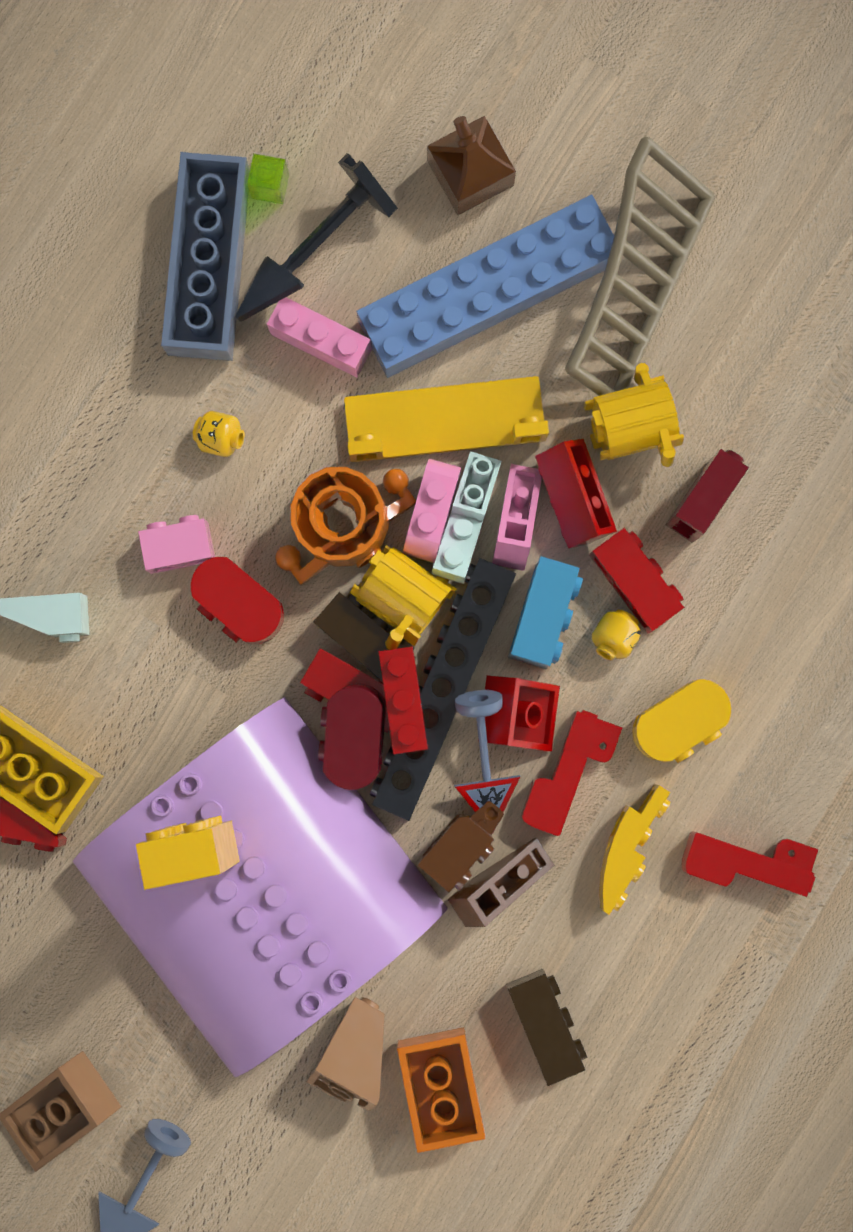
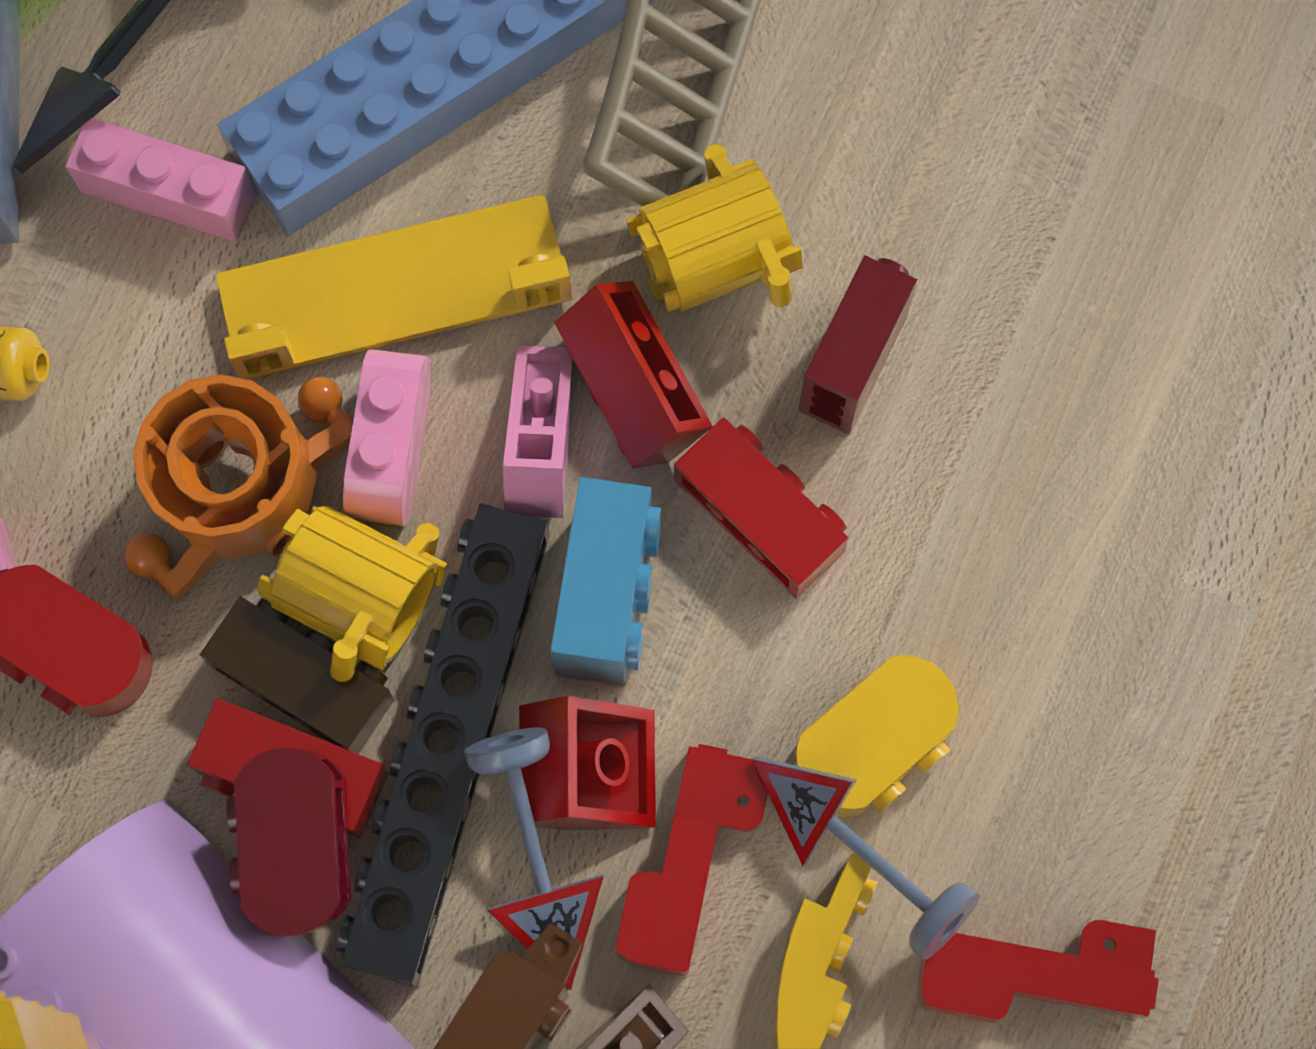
camera: 10 degrees left, 10 degrees down
(403, 700) = (371, 764): red brick -> none
(466, 517) = (450, 442): light aqua slope -> none
(616, 635) = (738, 604): yellow head -> none
(638, 757) = (808, 807): none -> sand blue piece

